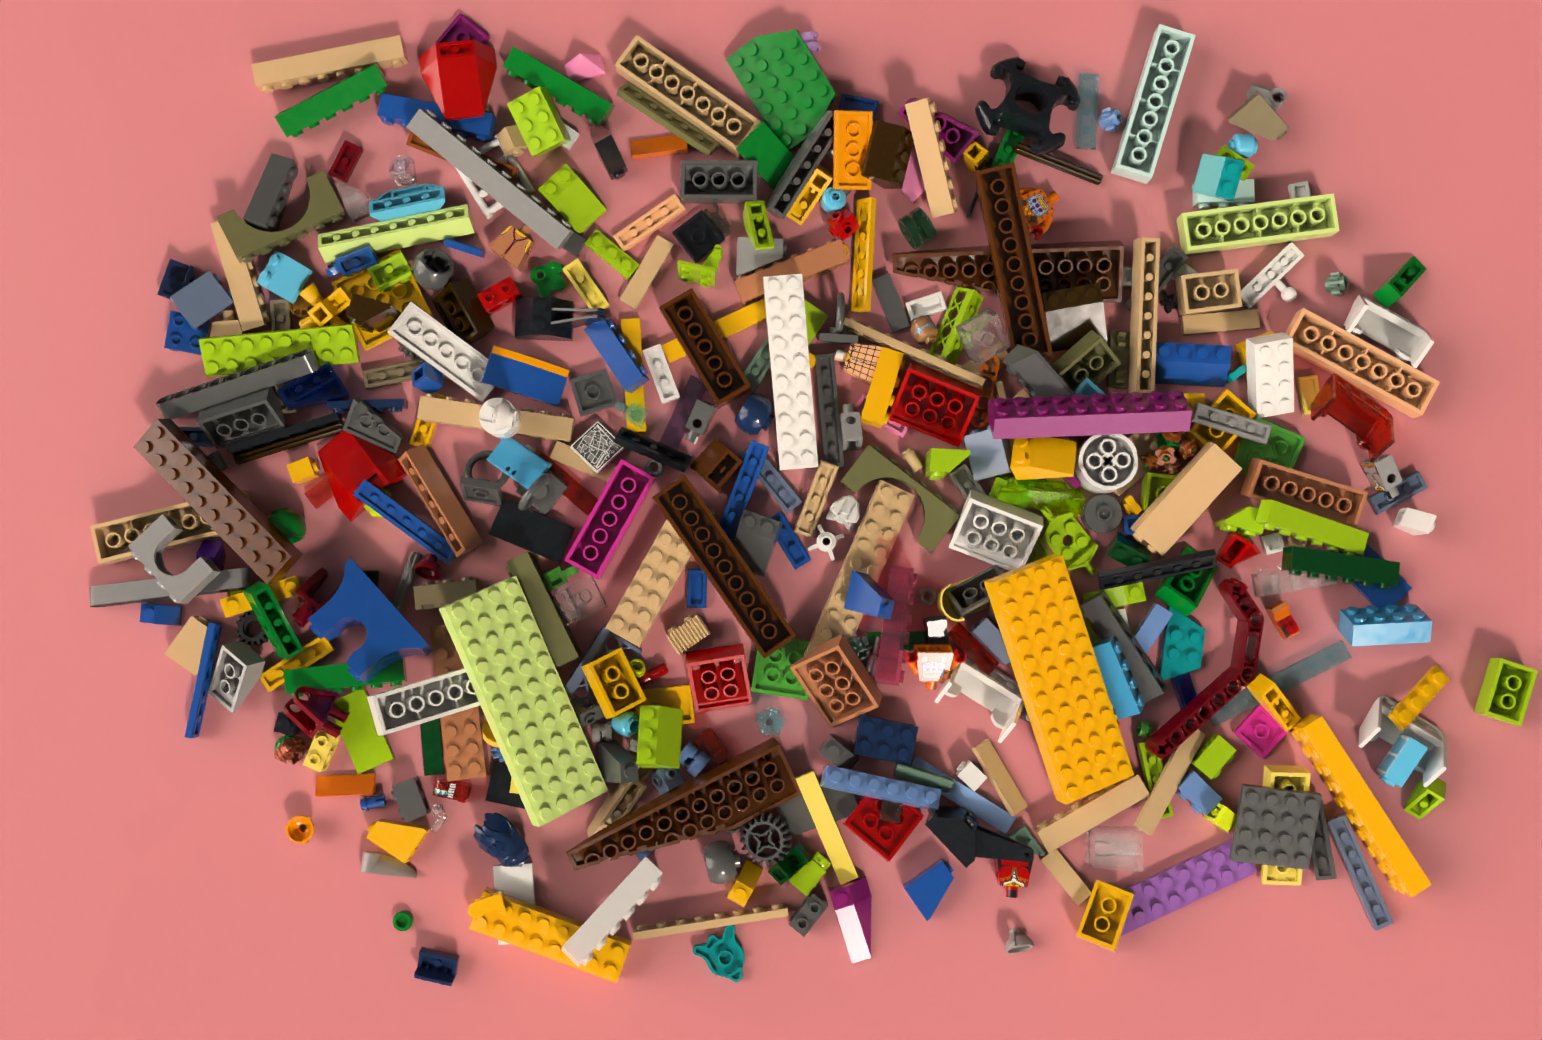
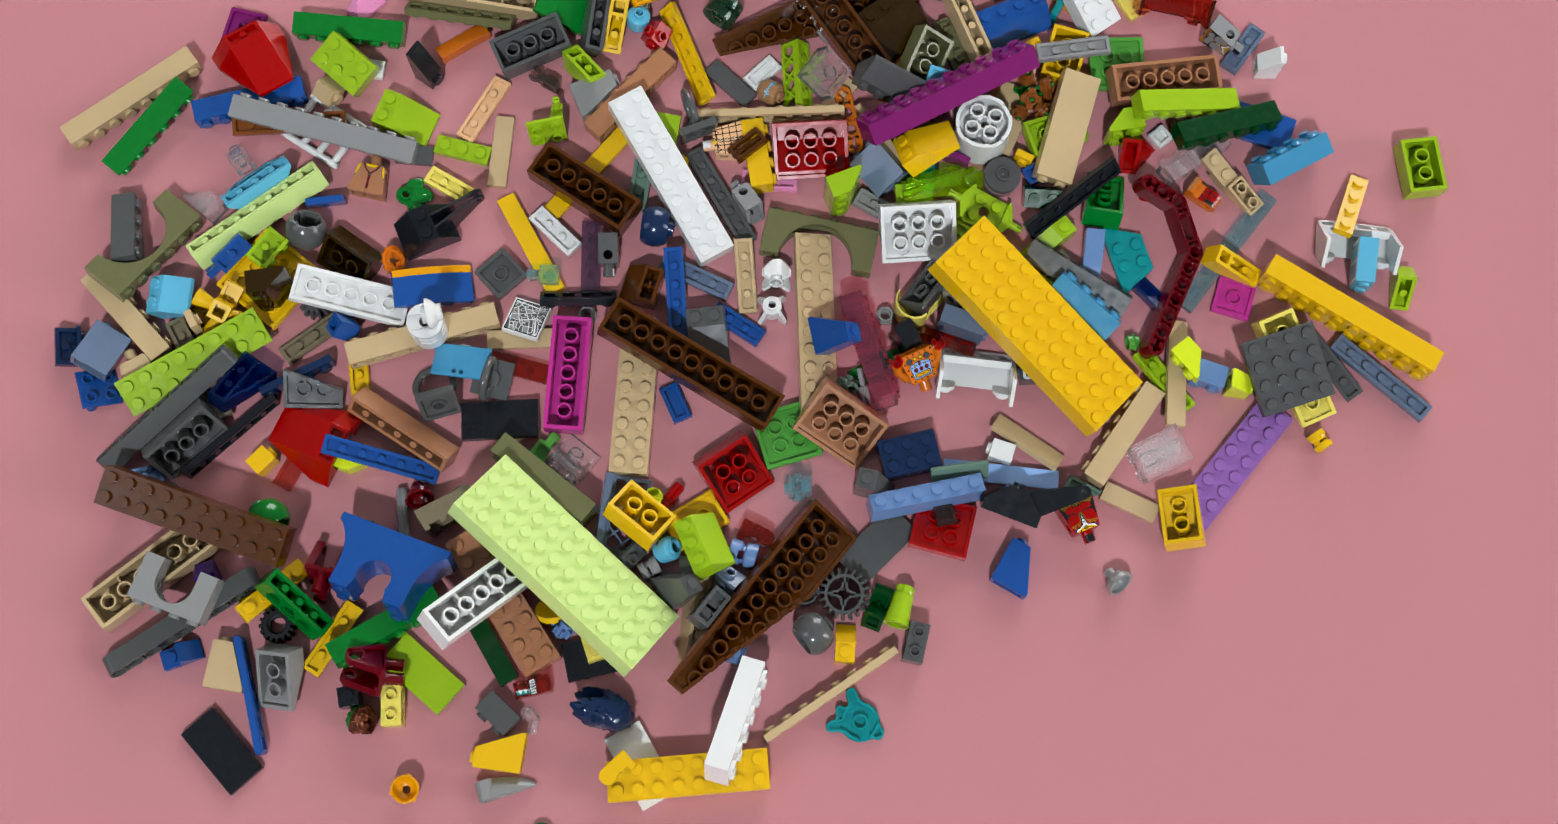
camera: 30 degrees left, 10 degrees down
(159, 717) = (222, 751): none -> black tile
(288, 443) = (237, 444): dark brown axle -> none
(294, 312) = (194, 321): none -> tan plate
(345, 161) = (183, 175): dark red plate -> none
(345, 785) = (429, 730): orange slope -> none
(372, 802) = (462, 734): blue pin -> none
(499, 295) = (377, 227): red brick -> none
(504, 340) = (395, 253): none -> orange gear
(617, 355) = (506, 230): blue brick -> none
(636, 798) = (708, 608): none -> dark grey brick
(688, 634) = (686, 445): tan brick -> none
(698, 236) = (532, 101): black tile -> none
(826, 827) = (895, 558): light yellow tile -> none
(853, 911) = (957, 625): magenta wedge -> none
(858, 373) = (753, 149): none -> reddish brown tile
(912, 459) = (814, 205): tan pin -> none
(1188, 774) = (1188, 357): none -> neon yellow slope
(1213, 756) = (1204, 334): lime brick -> none
(1271, 904) = (1315, 439): none -> yellow wheel
(1315, 621) = (1230, 183): none -> tan slope

